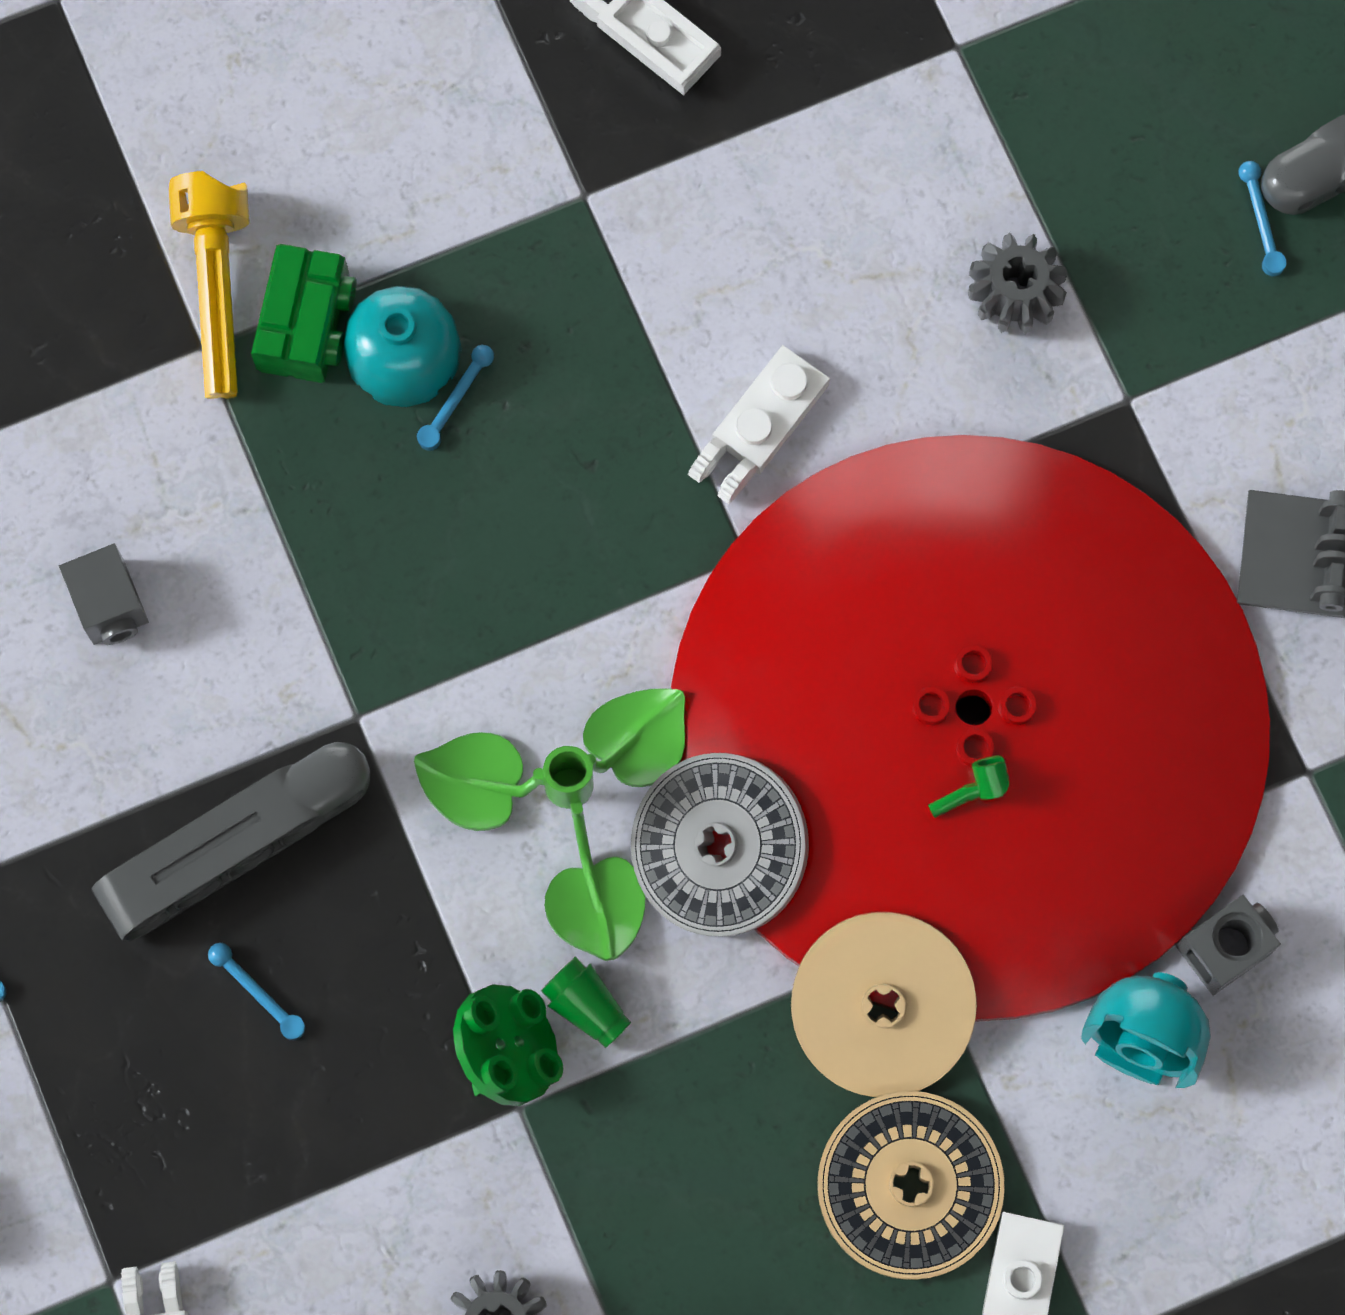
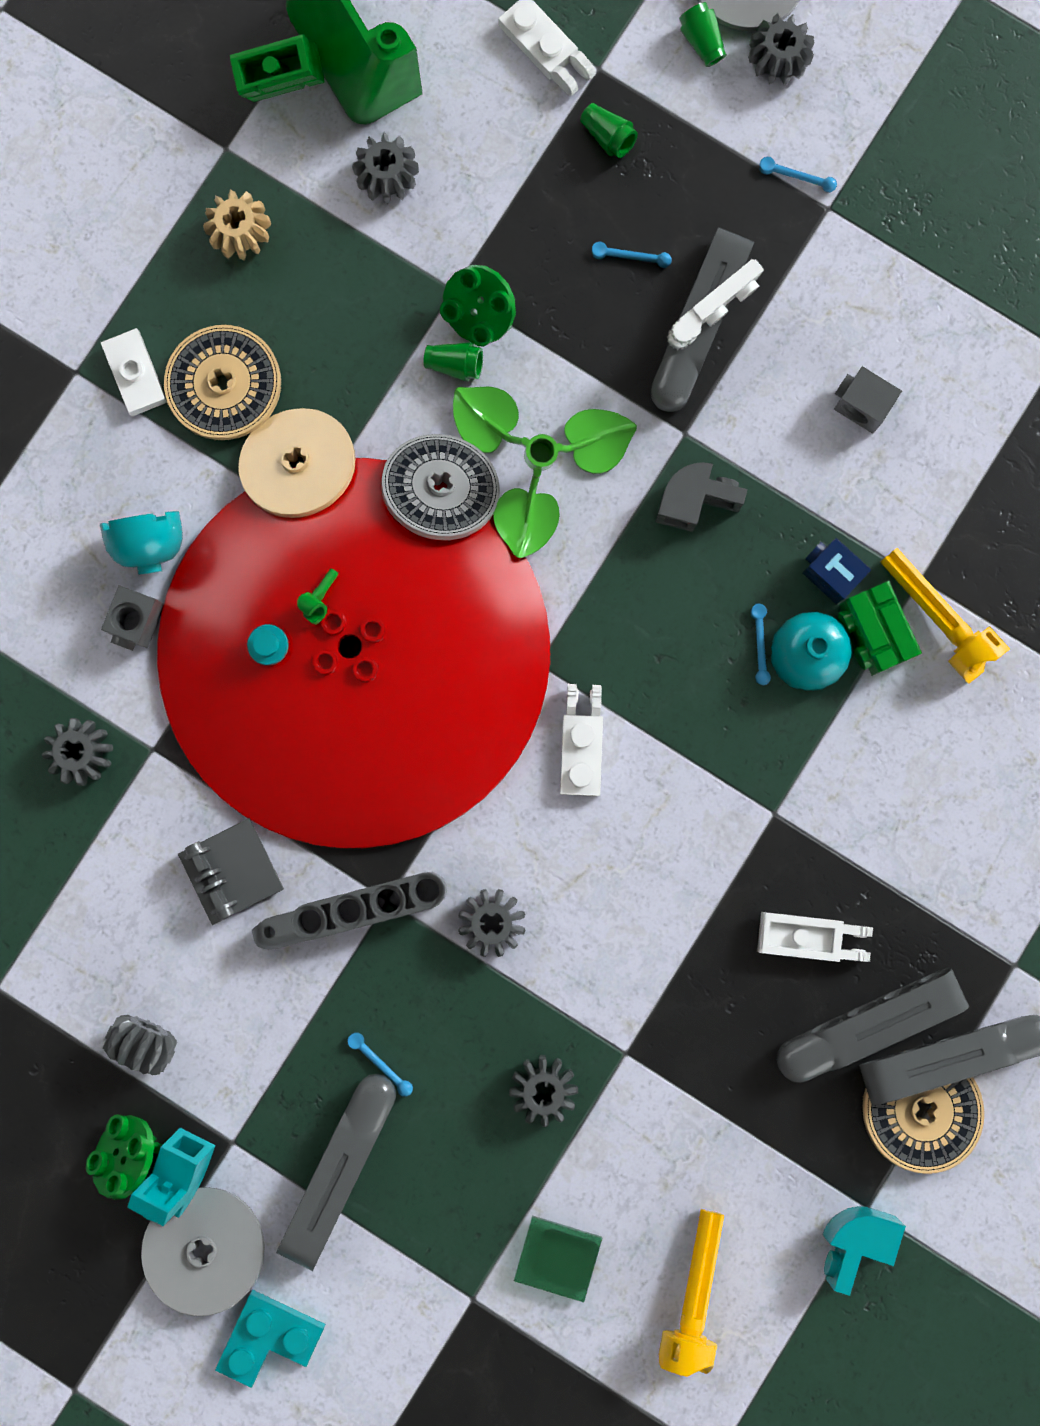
camera: 145 degrees right, 10 degrees up
(164, 1174) = (609, 130): none -> green cone
(214, 822) = (713, 307): none -> white hinge
(301, 416) = (835, 570): none -> dark blue brick
(412, 631) = (692, 488): none -> dark grey brick
(1077, 771) = (267, 644): none -> teal plate
(1090, 40) = (529, 1089): none -> dark grey gear
(1214, 402) = (291, 931): none -> dark grey piece

